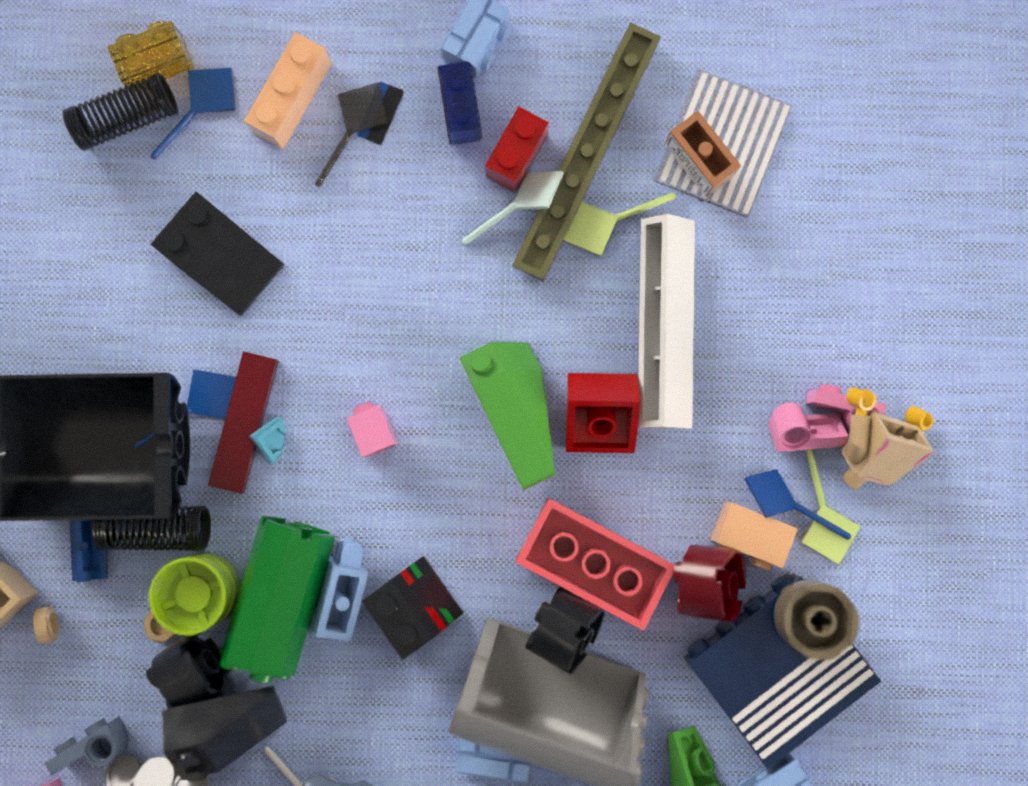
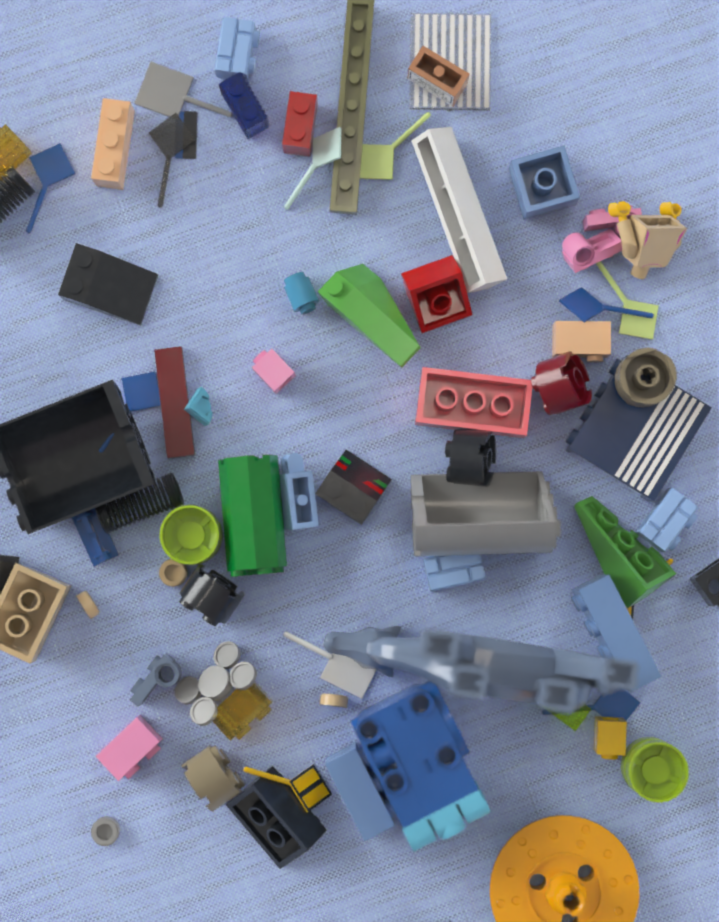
camera: 25 degrees left, 0 degrees up
(217, 731) = (250, 623): black slope -> none
(377, 54) = (166, 91): none -> light grey piece
(440, 350) = (301, 293): none -> dark azure brick
(780, 329) = (544, 182): none -> medium blue brick

